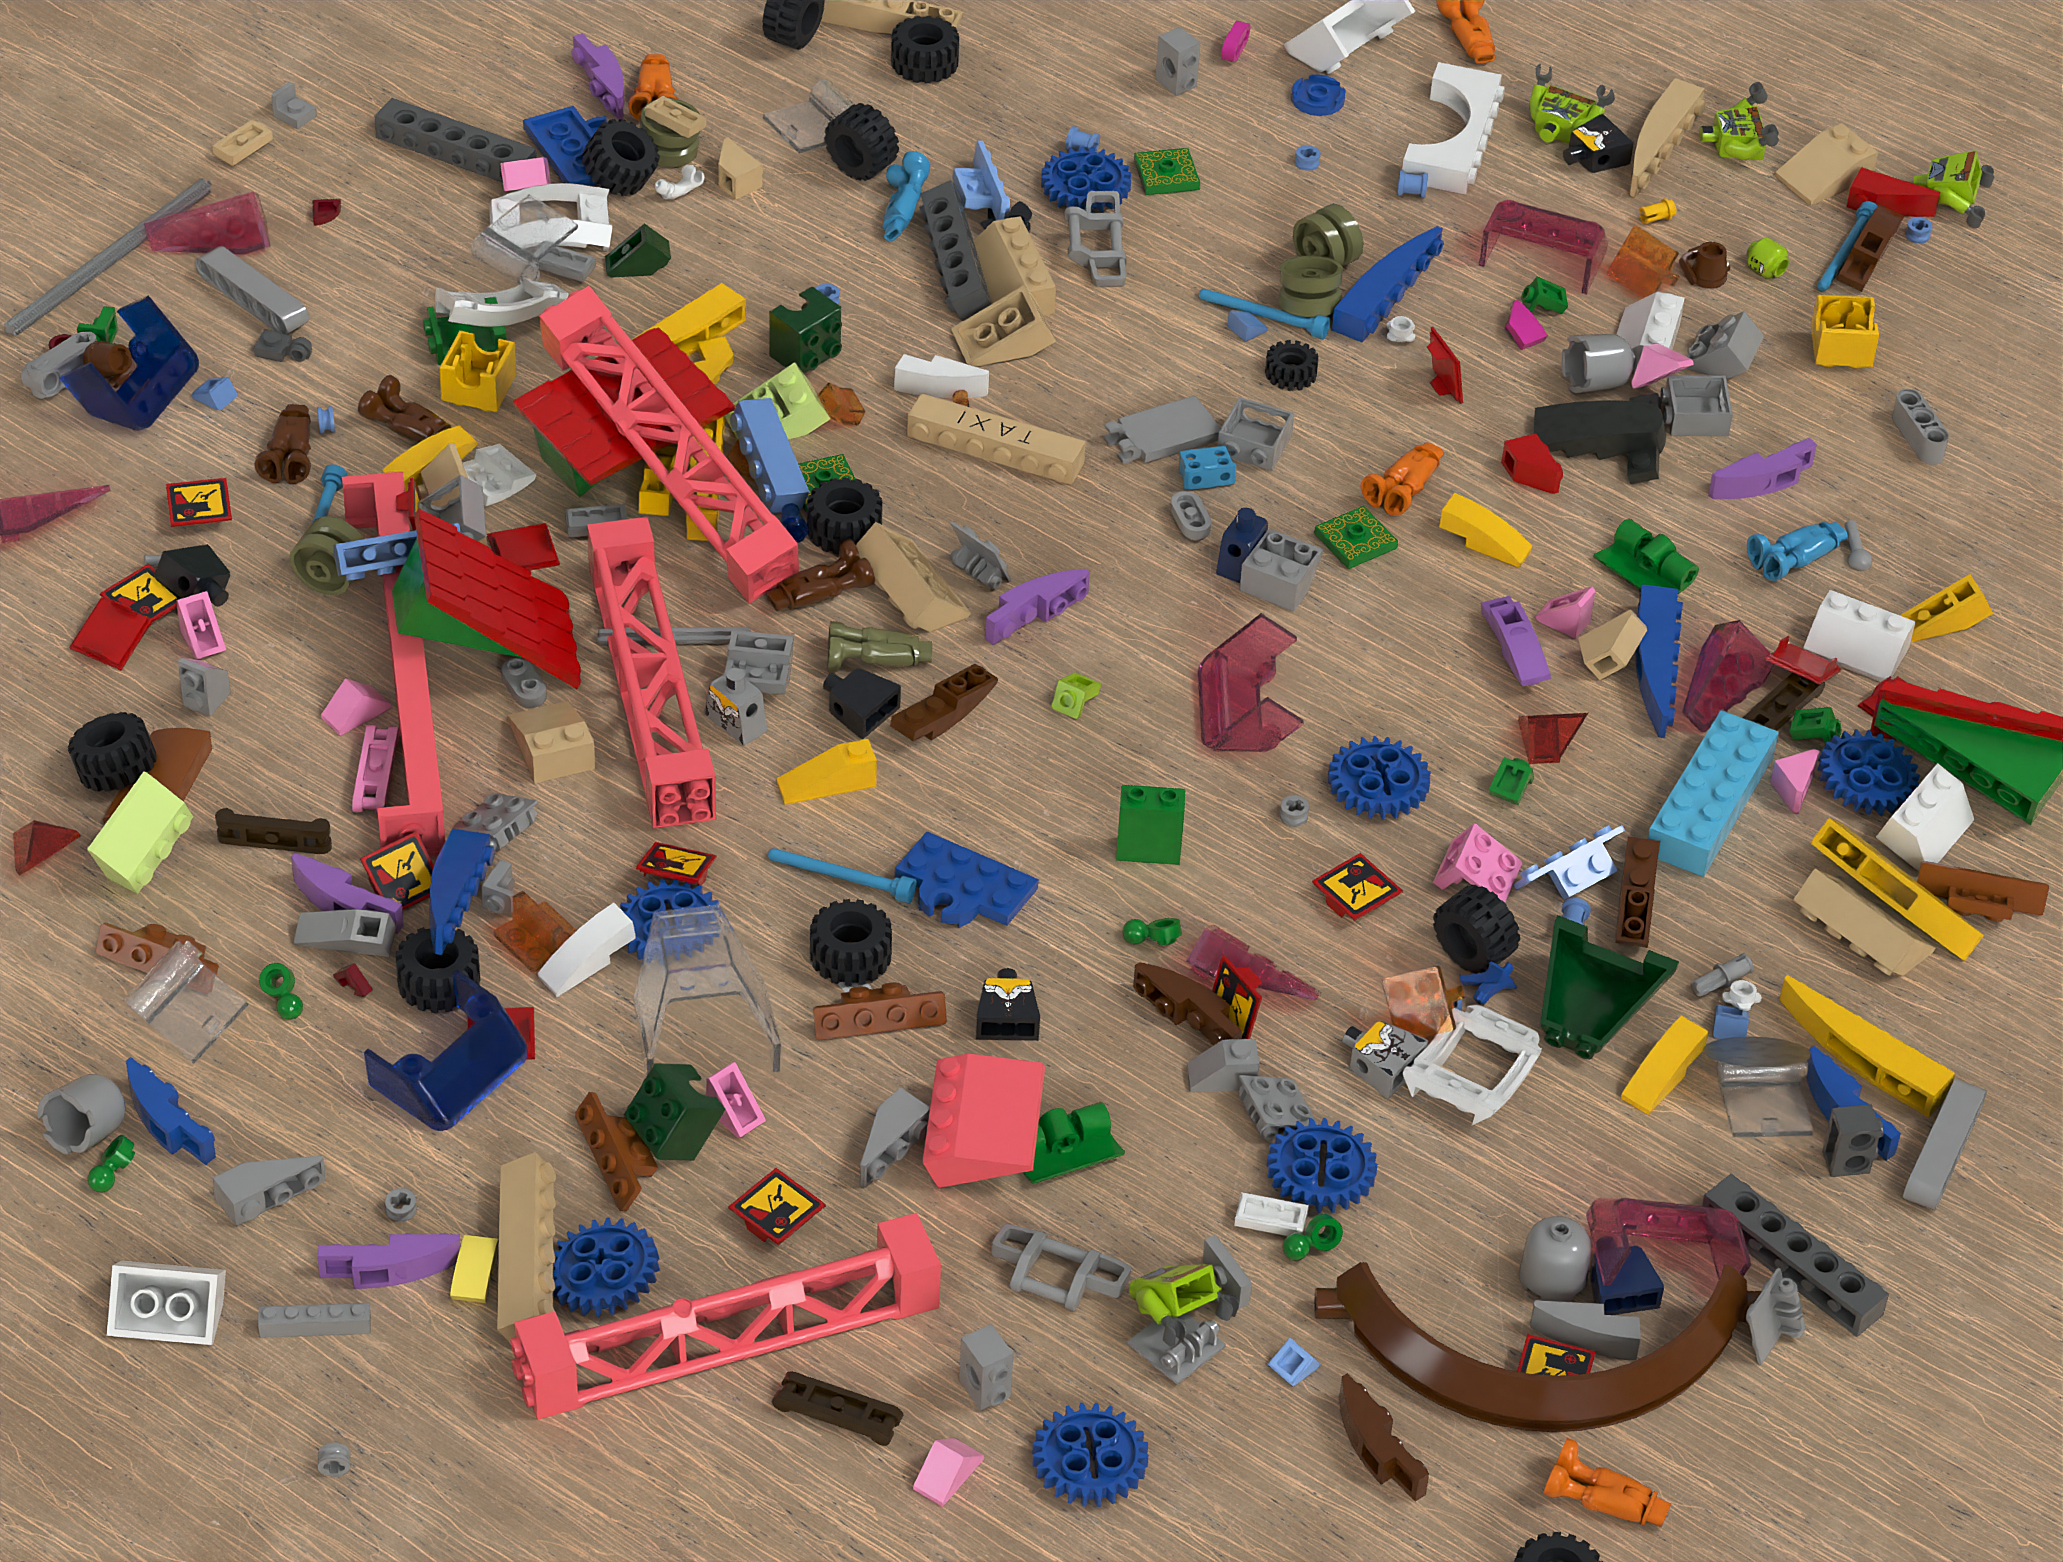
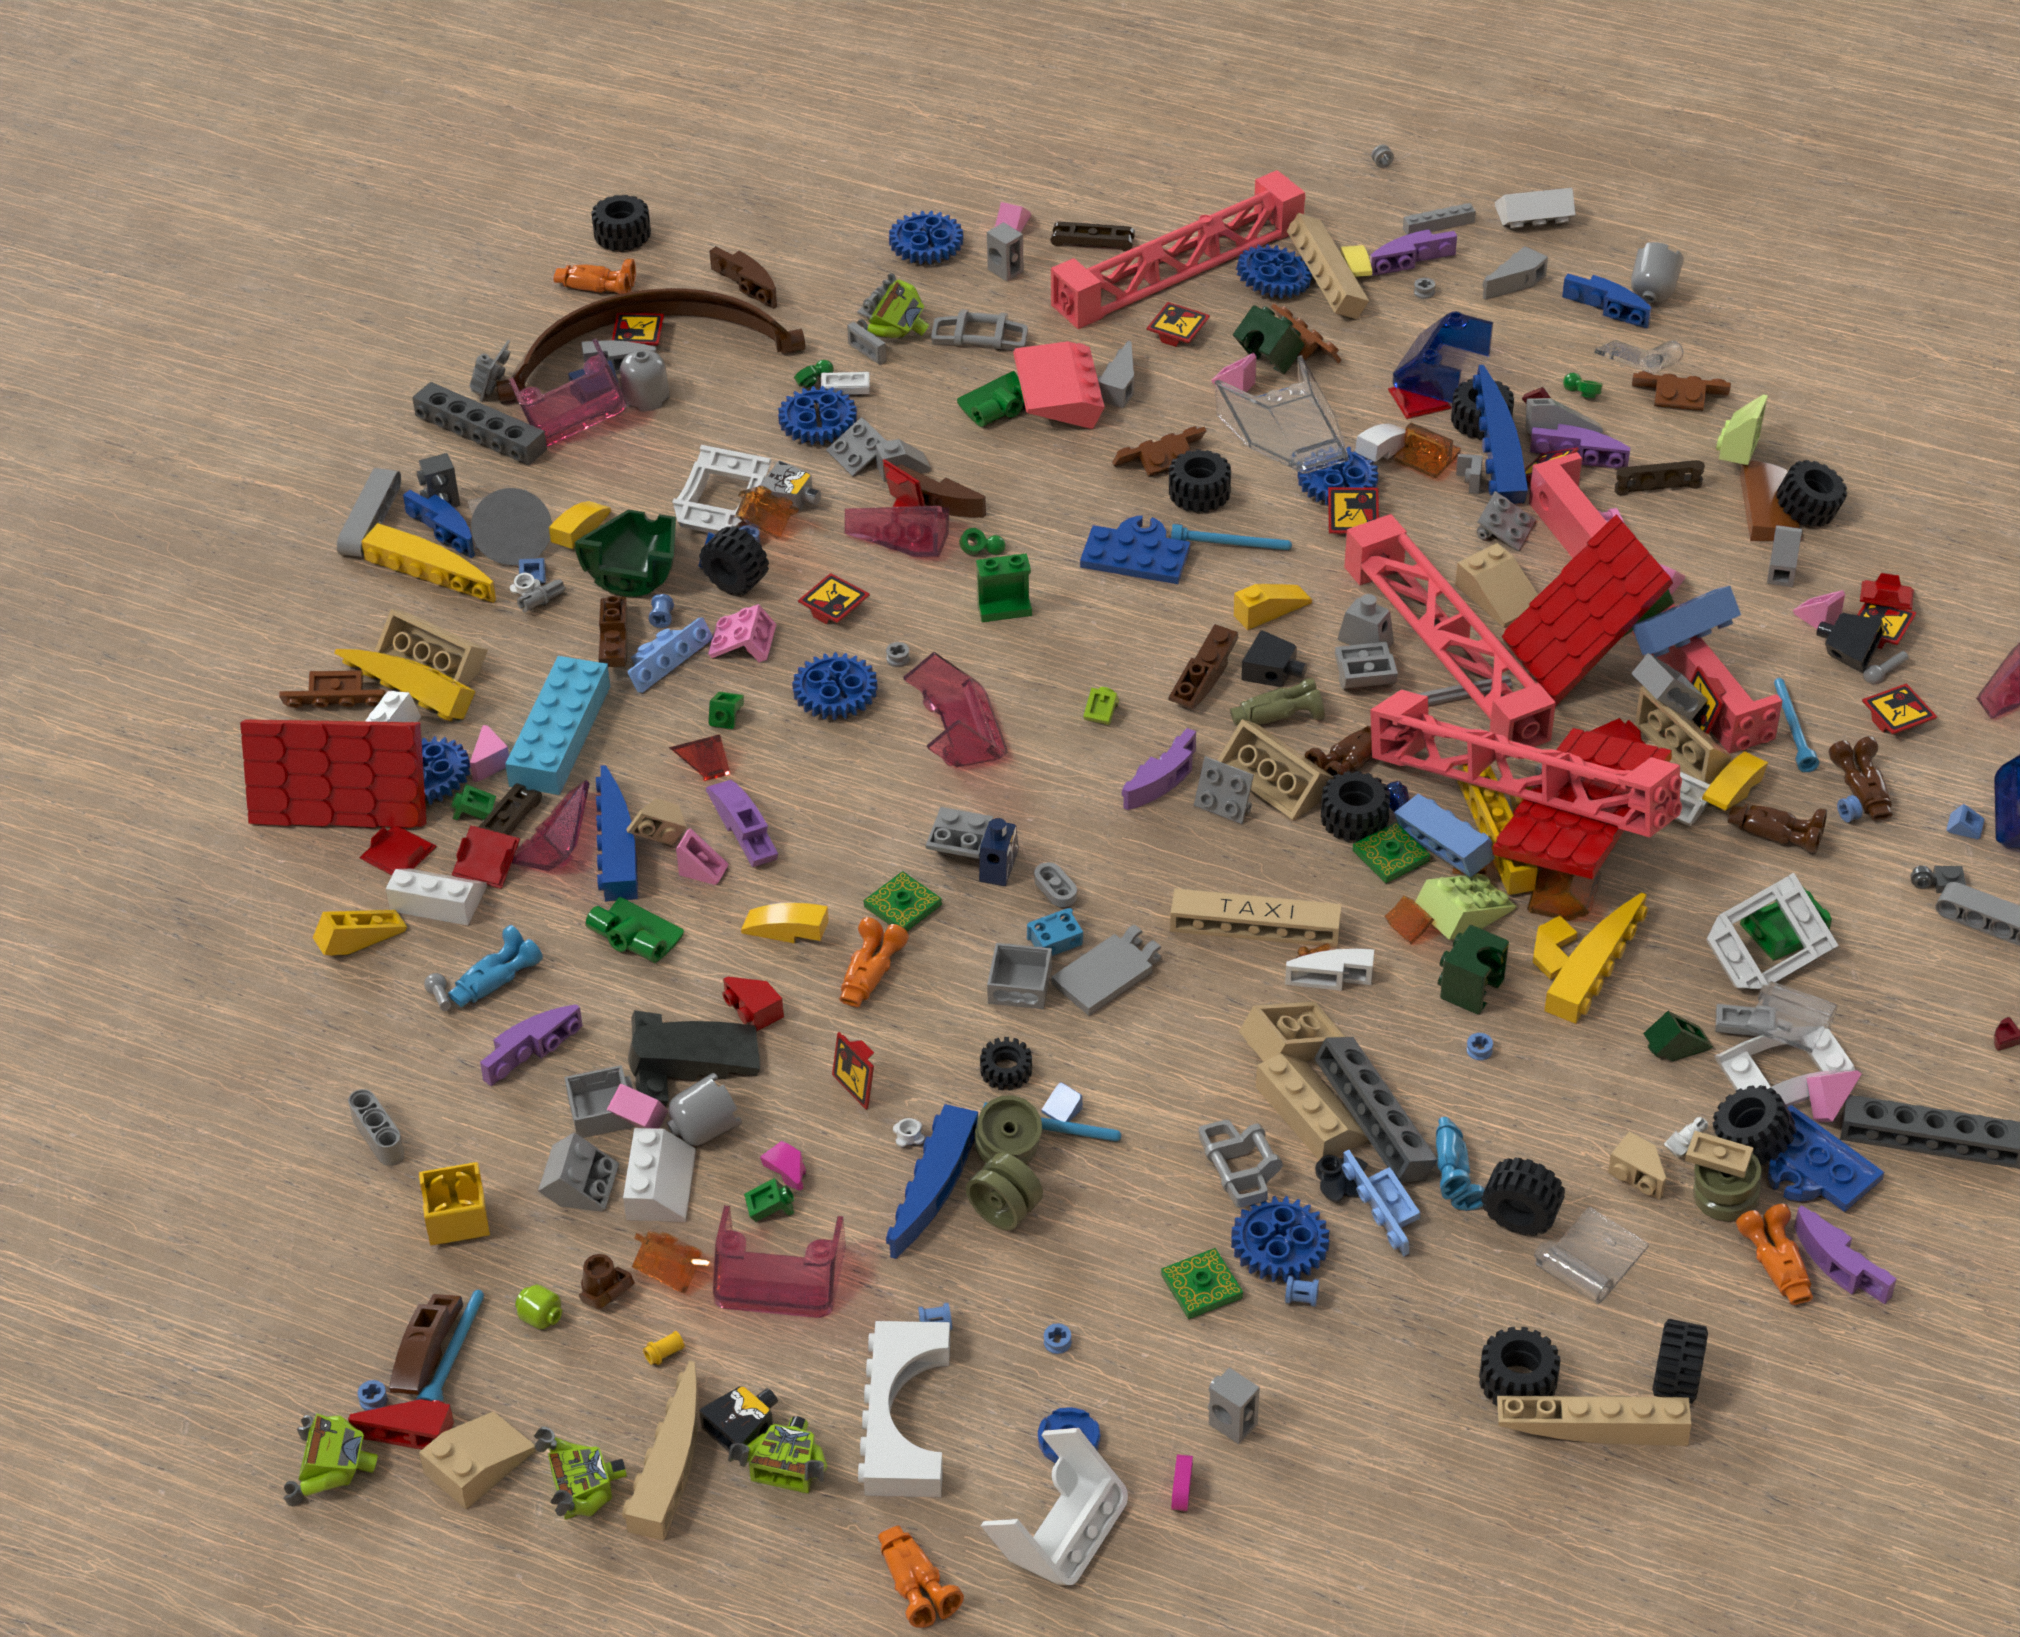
camera: 170 degrees right, 0 degrees up
(38, 842) = (1816, 438): clear red slope -> none
(117, 1155) = (1621, 270): green plate -> none
(314, 555) = (1757, 664): olive wheel -> none
(477, 376) = (1743, 866): yellow piece -> none
(1008, 1009) = (1068, 466): black torso -> none
(1293, 1363) = (808, 310): light blue slope -> none

